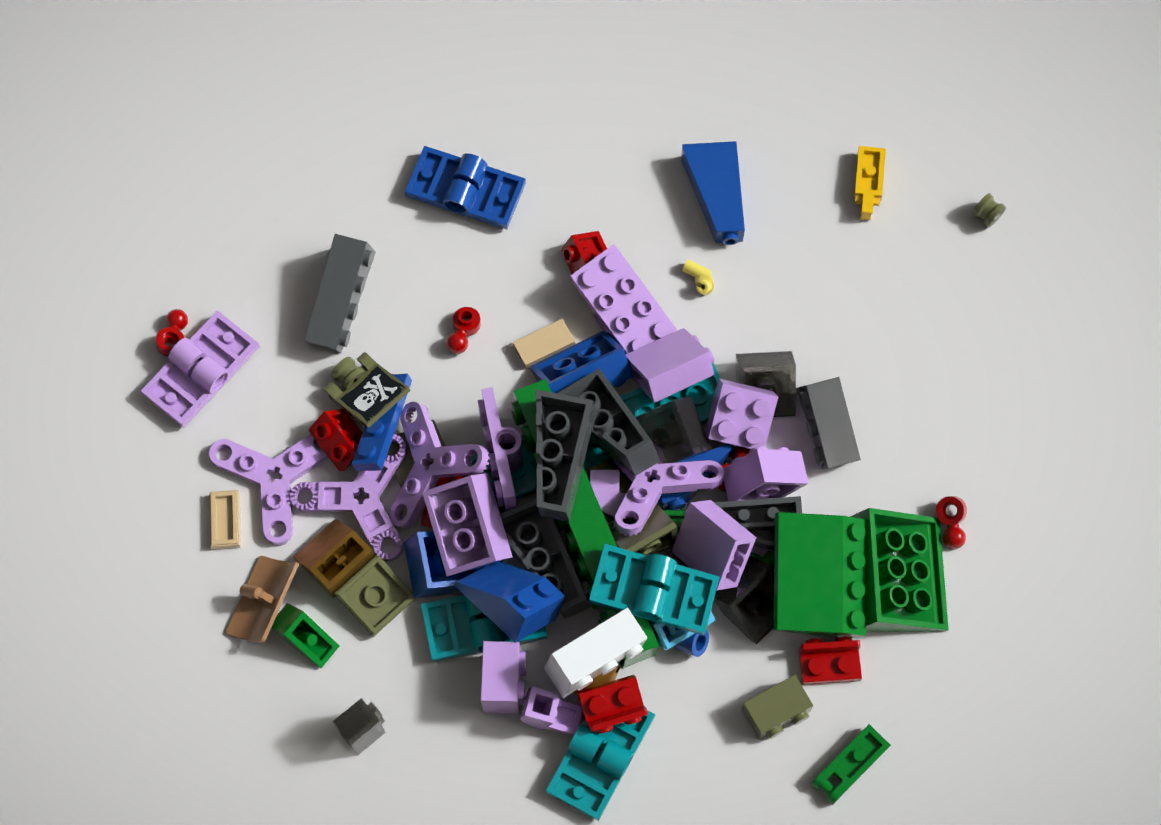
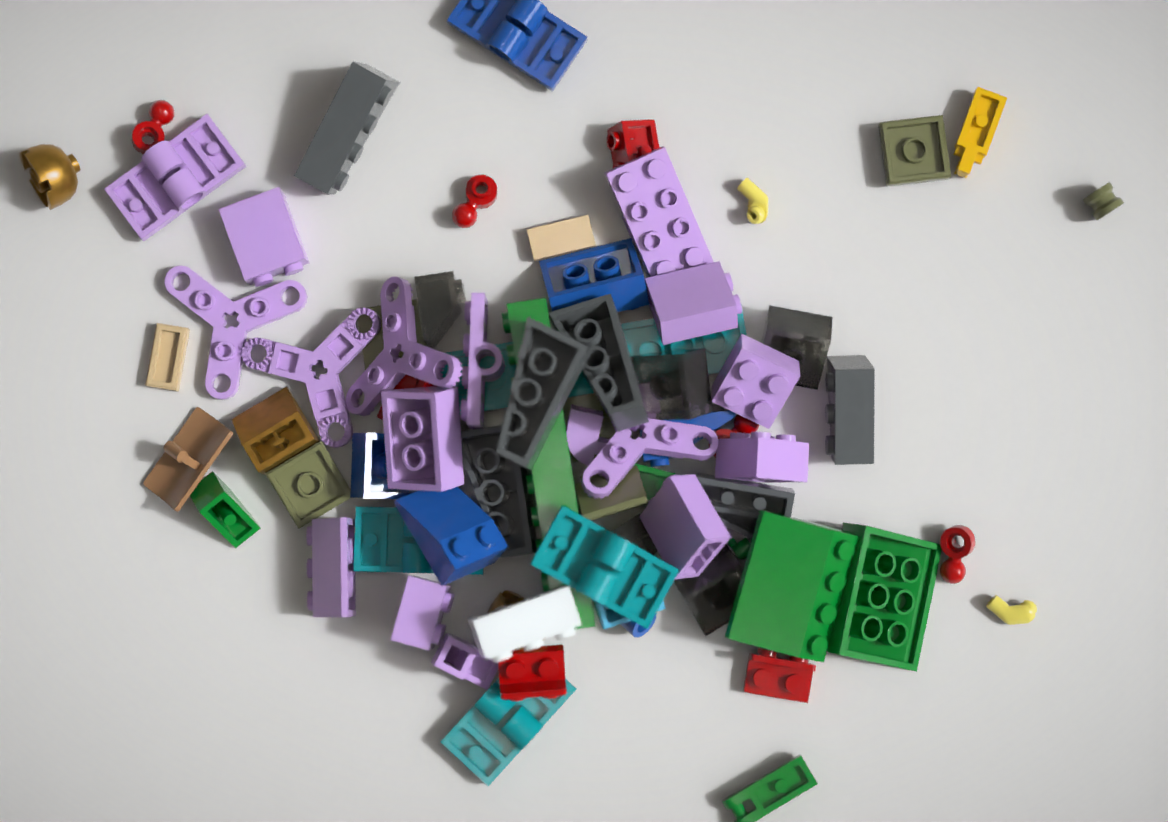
camera: 15 degrees right, 15 degrees up
(92, 387) = (51, 173): none -> pearl gold cylinder
(287, 398) = (264, 237): none -> lavender brick
(337, 437) = (312, 297): red bracket -> none
(347, 372) = (336, 224): olive wheel -> none
(360, 725) = (259, 628): clear smoke brick -> none
(369, 395) = (354, 256): flag -> none
(378, 437) = (359, 292): blue plate -> none
(411, 660) = (332, 567): none -> lavender slope
(453, 412) = (439, 304): none -> clear smoke slope
(716, 183) = (802, 93): blue slope -> none
(777, 708) = (708, 714): olive brick -> none
(821, 207) = (914, 150): none -> olive plate
(1017, 560) = (1013, 614): none -> light yellow arm

